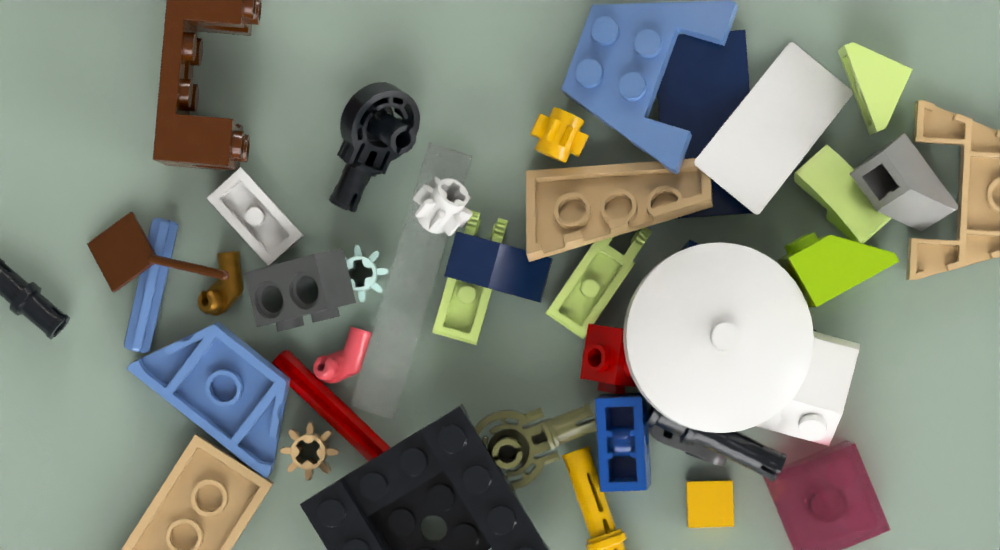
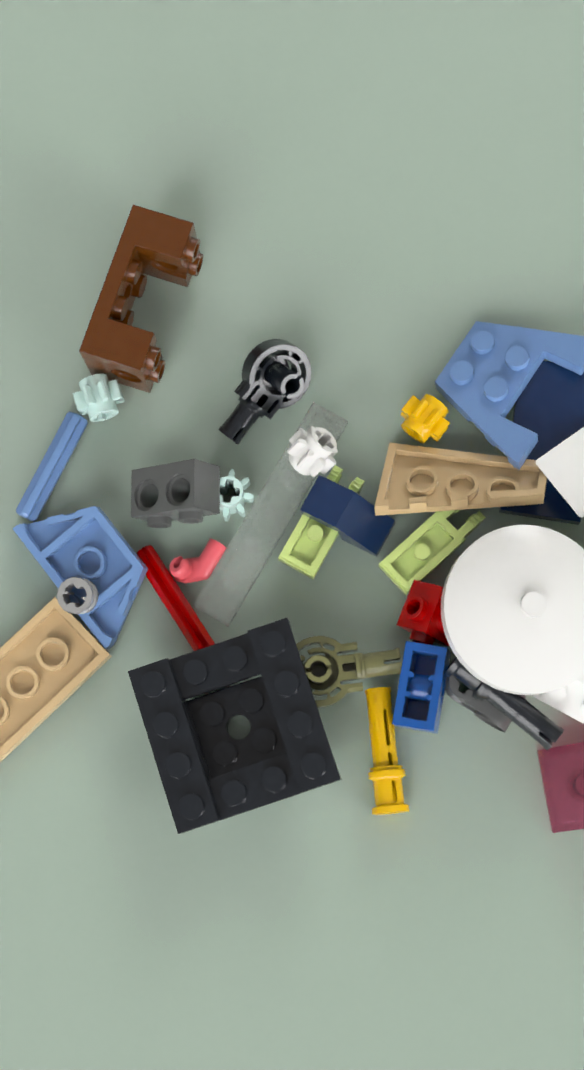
camera: 20 degrees right, 10 degrees down
(126, 253) = (40, 433): reddish brown piece -> none
(183, 195) = (98, 397): none -> light aqua gear
(222, 443) = (80, 583): none -> light grey bush
(223, 293) = (114, 484): pearl gold arm -> none
(255, 216) = (153, 428): white plate -> none
(296, 449) = (160, 635): tan gear -> none
(709, 503) = (485, 763): yellow tile -> none

